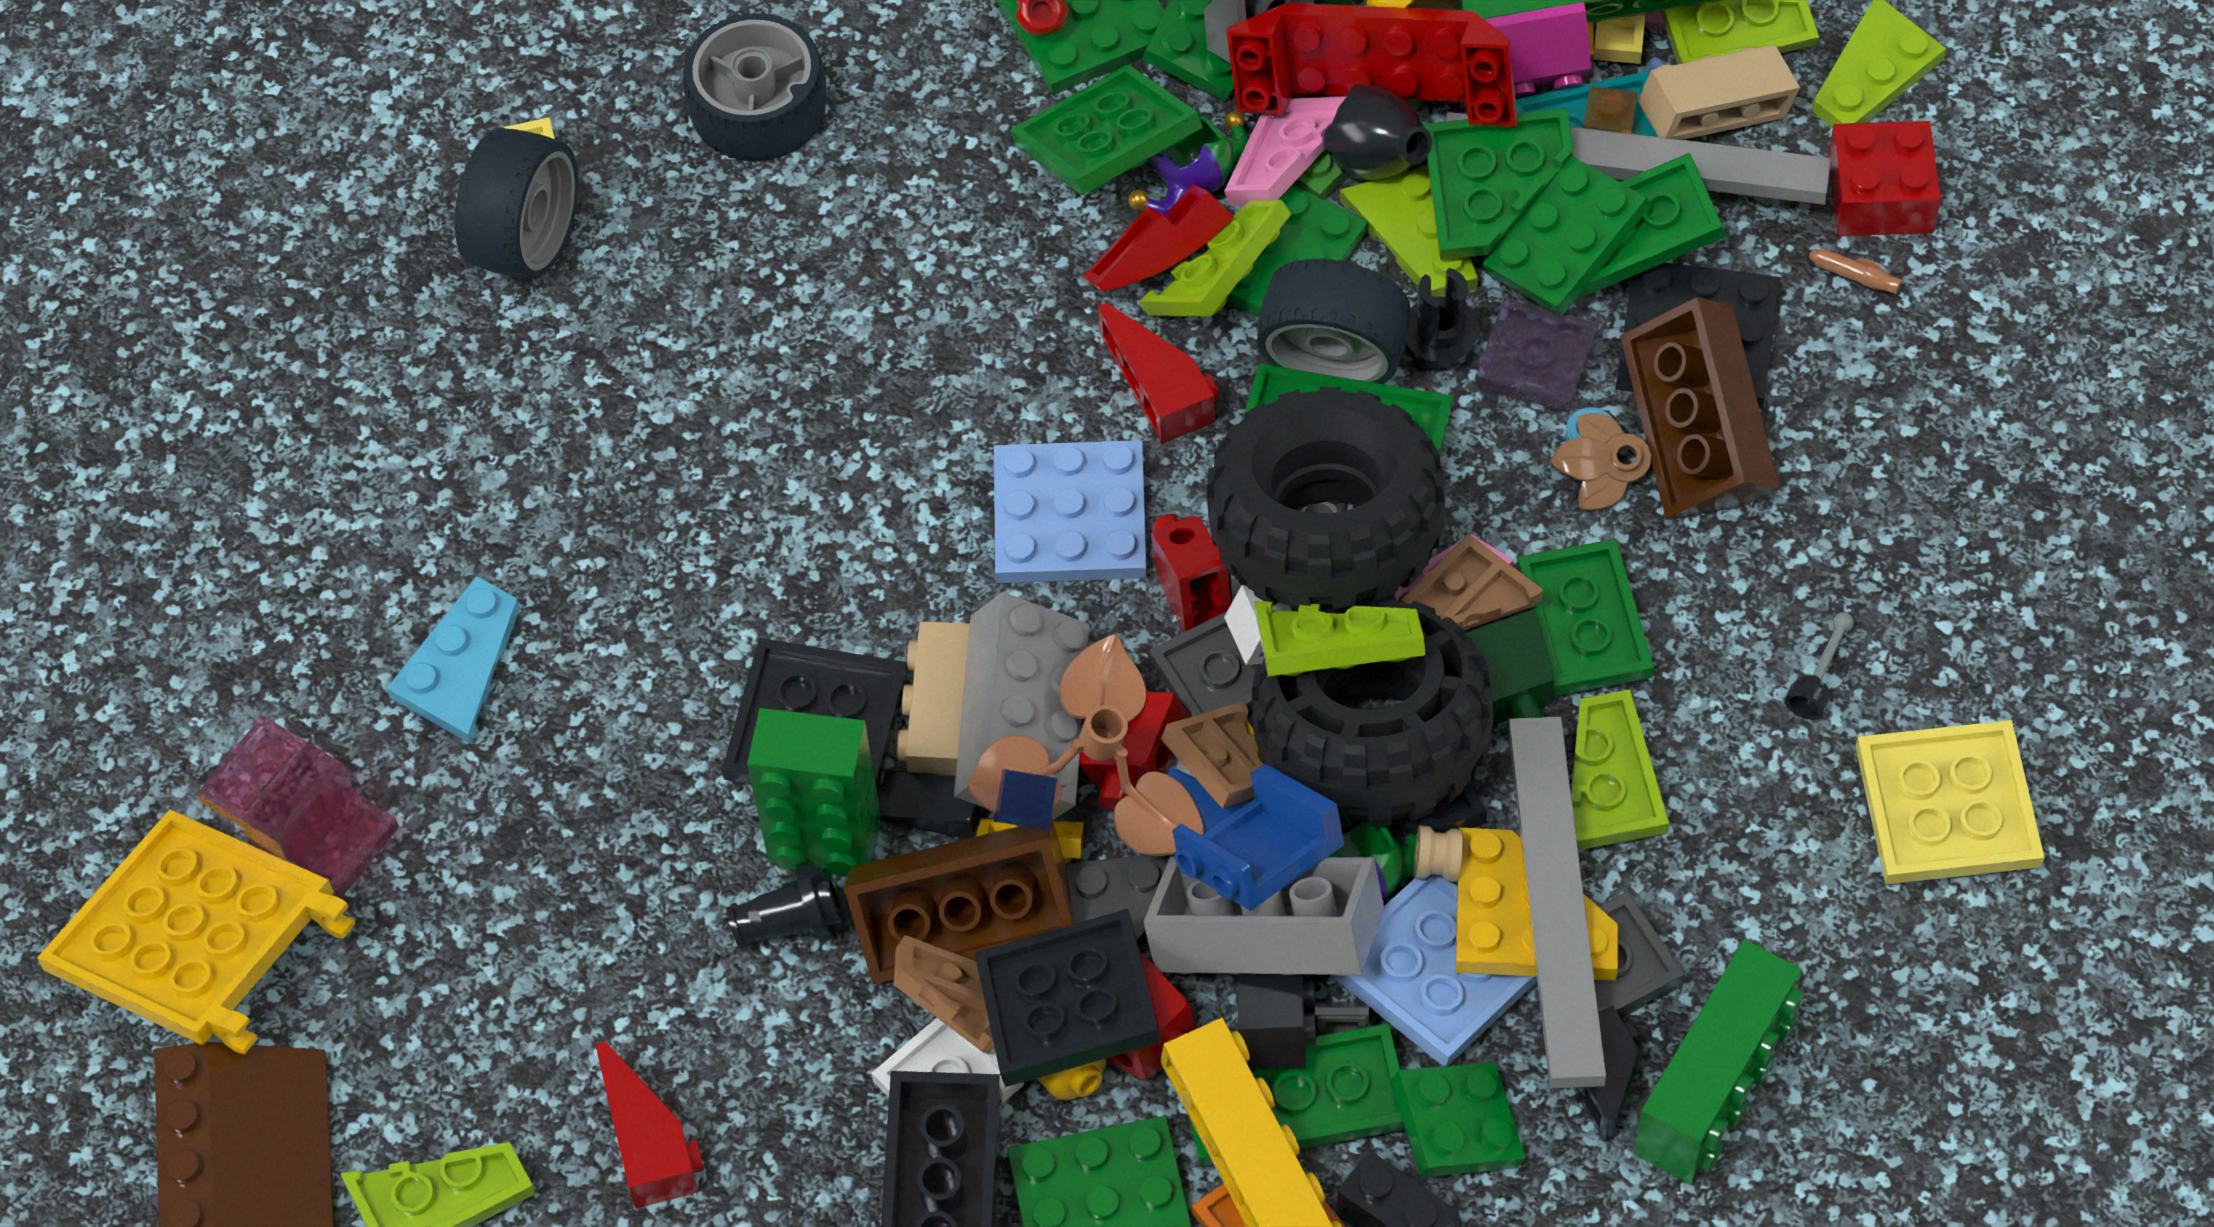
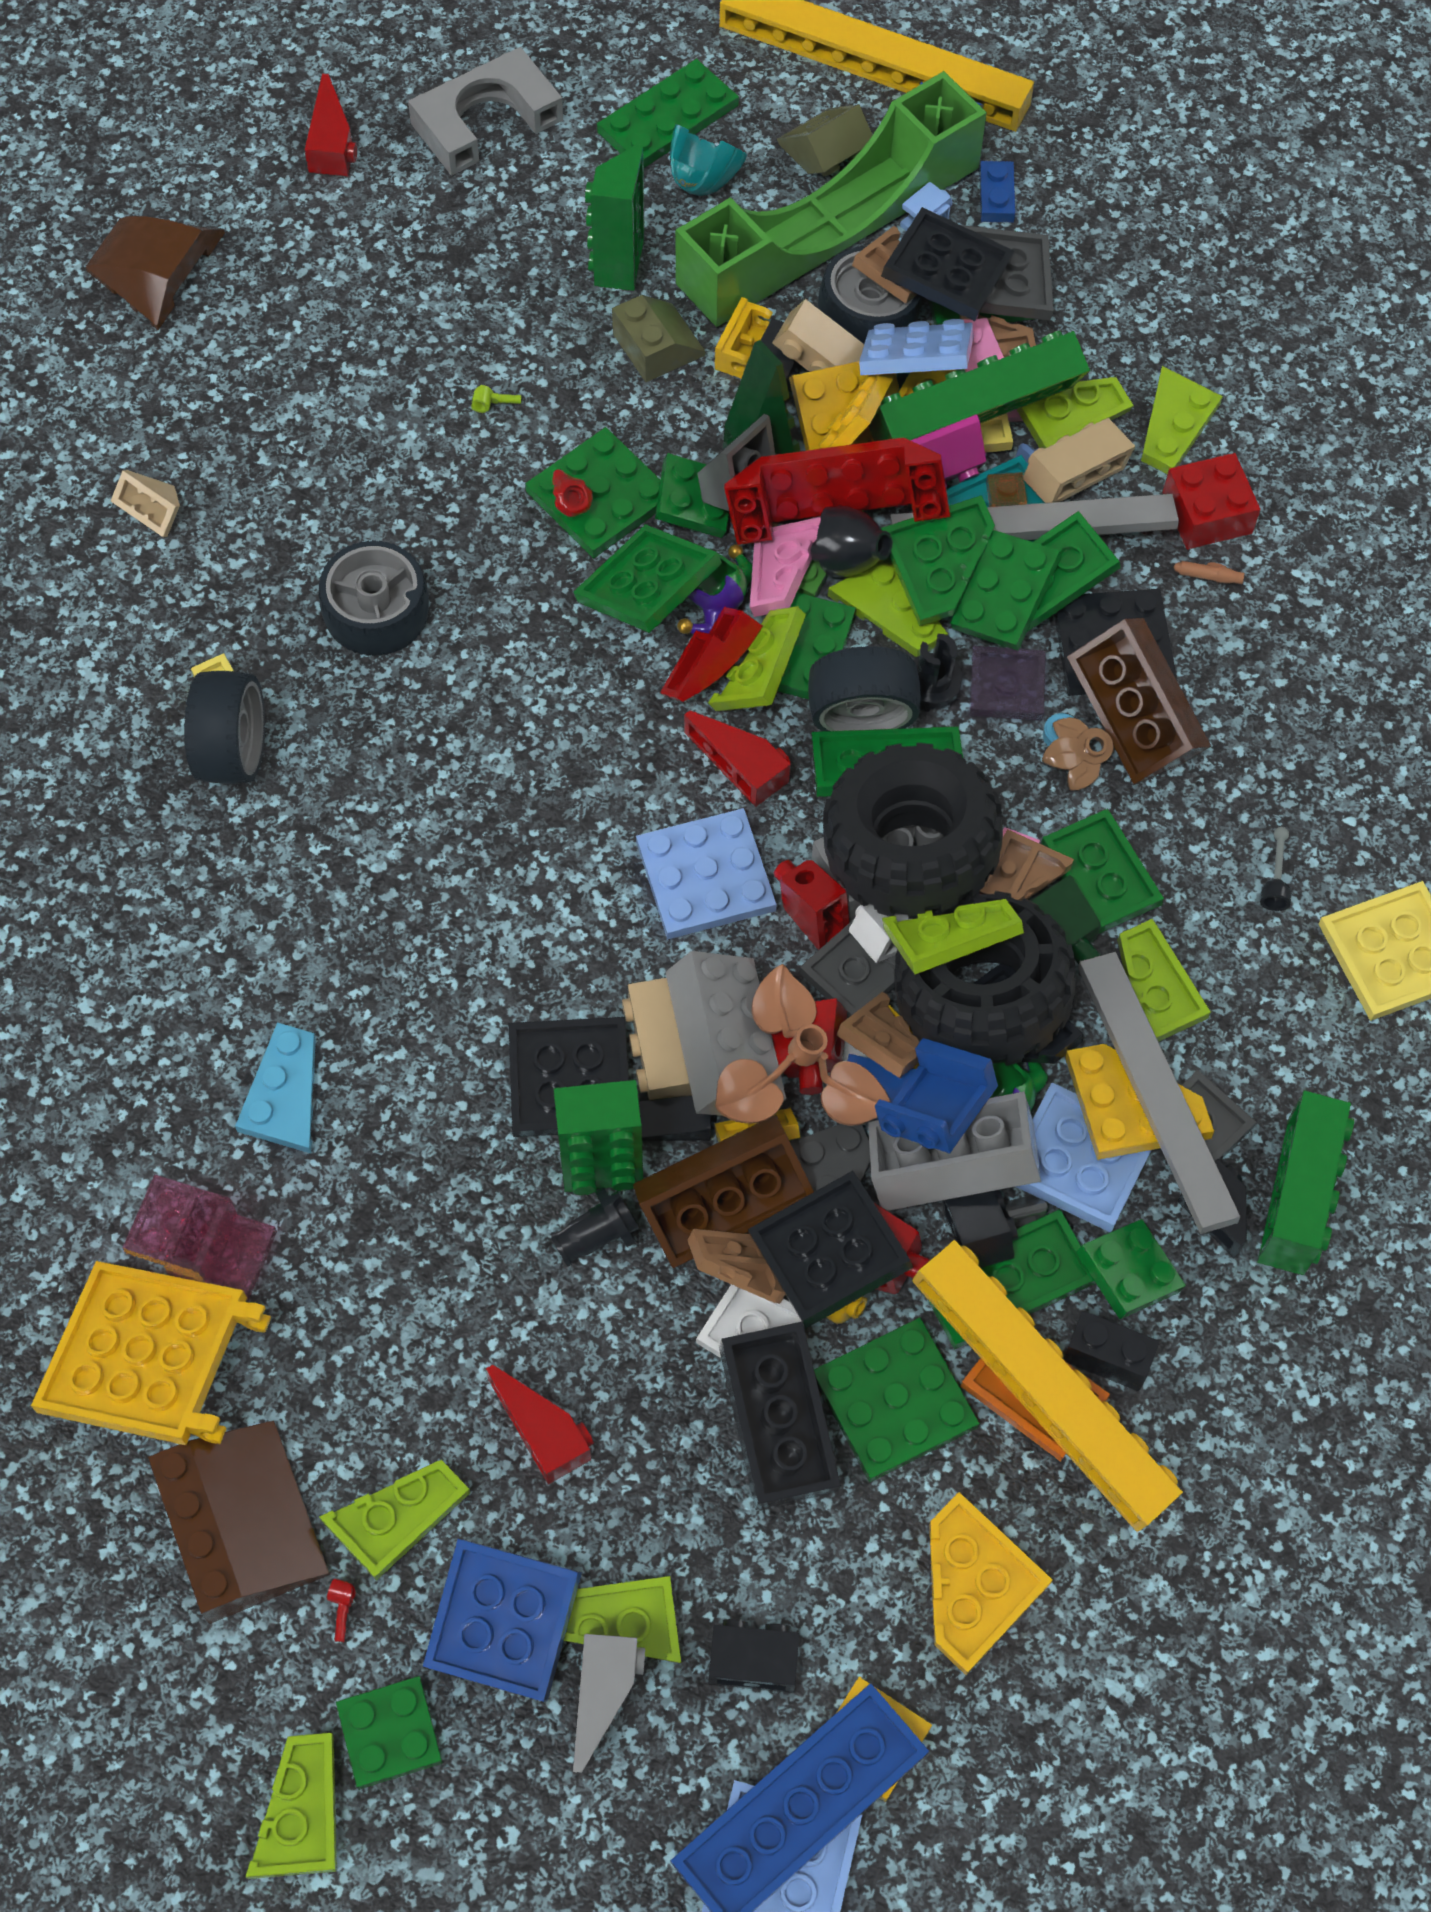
camera: 20 degrees left, 5 degrees up
(1025, 799) = (761, 1108): clear blue tile -> none
(1438, 853) = (1059, 1074): tan wheel -> none

